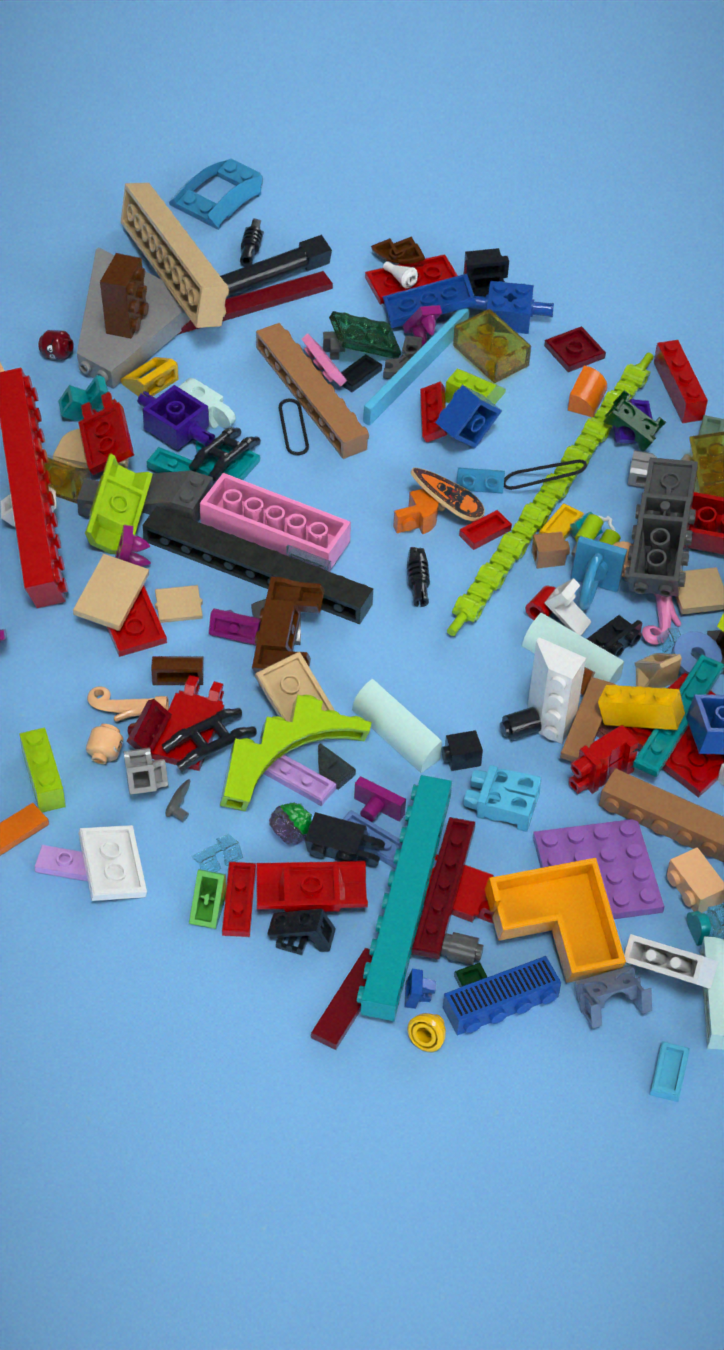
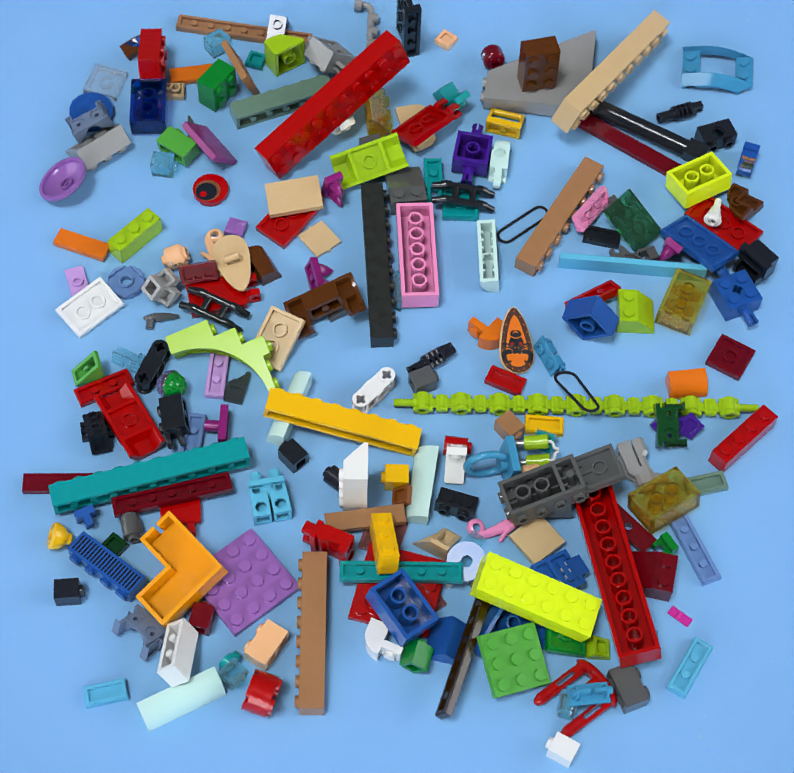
camera: 60 degrees right, 10 degrees up
(28, 672) = (210, 189): none -> tile
(99, 799) = (122, 273): none -> medium blue tile
(103, 672) = (235, 227): none -> medium lavender tile
(165, 684) = (233, 260): none -> tan shield
(248, 831) = (152, 367): none -> black piece
(304, 225) = (717, 134): none -> black brick
(320, 464) = (488, 255): none -> light aqua brick
(351, 223) = (747, 159): none -> blue leg
(353, 264) = (698, 180): none -> neon yellow brick
(426, 642) = (374, 390): none -> white piece
(441, 594) = (423, 379): none -> dark grey brick
(455, 680) = (342, 422): none -> yellow brick
(513, 1051) = (68, 591): none -> black brick
(630, 922) = (202, 617): none -> dark red brick

